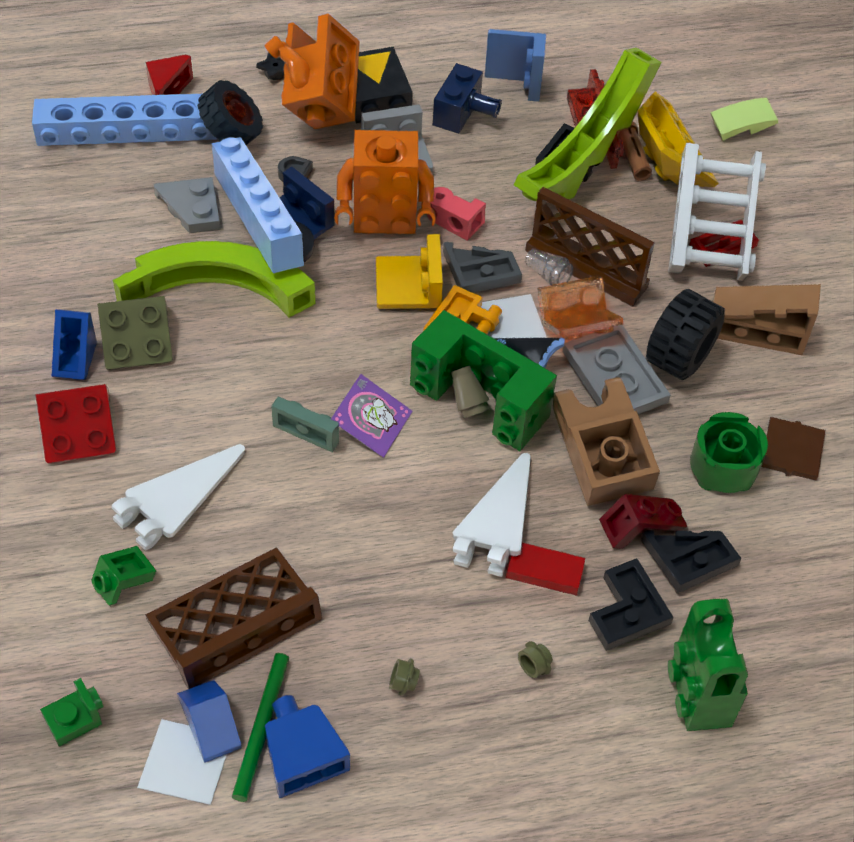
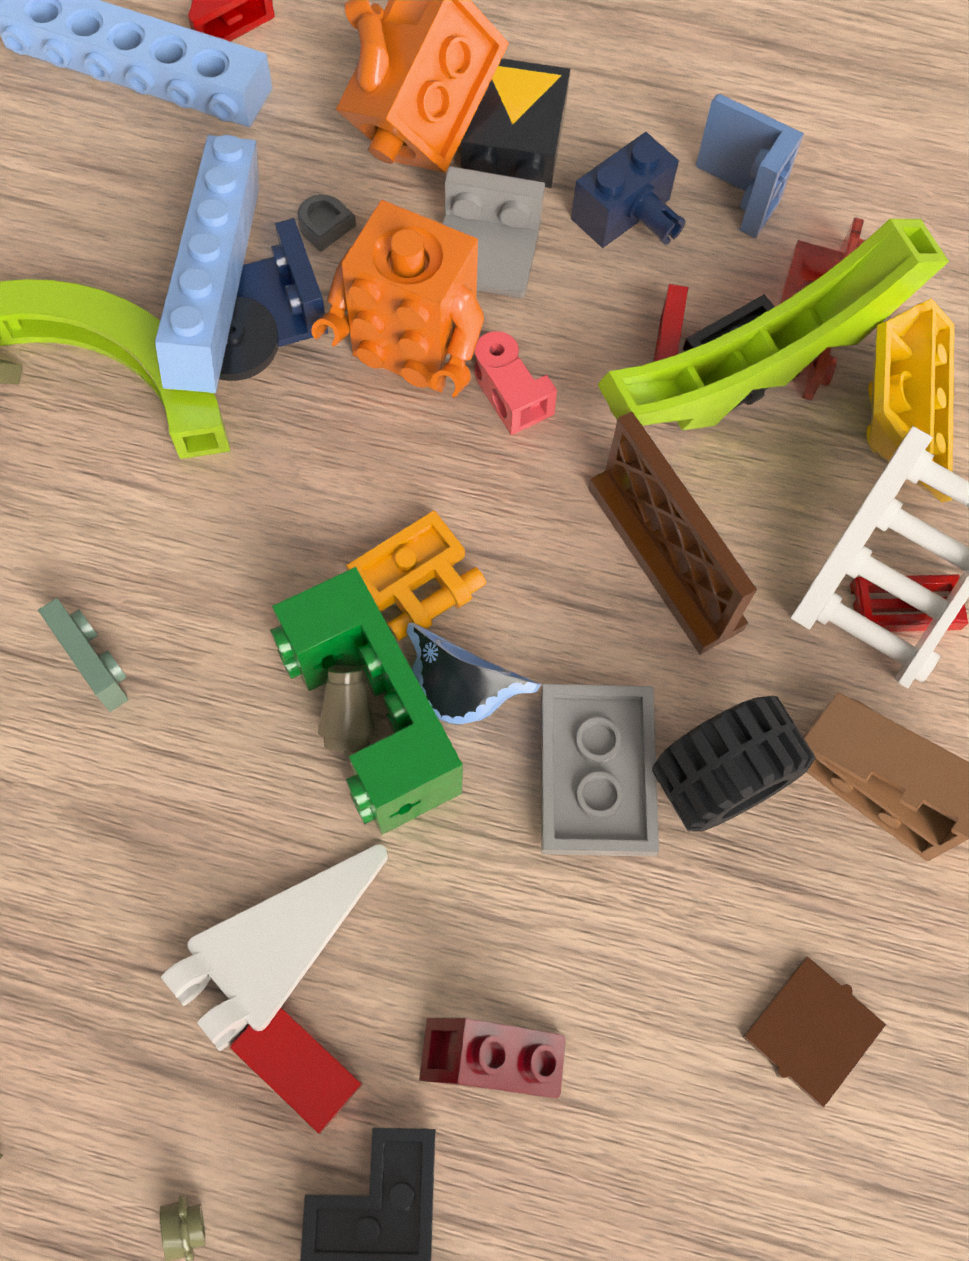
camera: 25 degrees right, 15 degrees up
(191, 202) = (149, 219): light grey wing -> none
(230, 112) = (266, 95): black wheel -> none
(371, 415) = (188, 680): sticker -> none
(411, 280) = (379, 470): yellow bracket -> none
(482, 267) = (496, 495): dark grey wing -> none
(517, 319) = (504, 611): white sticker -> none
(523, 152) = (671, 322): none -> red tile
(550, 267) = (602, 537): clear cone -> none
(576, 308) = (594, 638): clear orange bracket -> none
(606, 444) = (500, 879): medium nougat brick -> none
(635, 152) = (848, 407): nougat pin -> none
(691, 556) = (530, 1161): black wing -> none
(728, 453) = (719, 993): green brick -> none

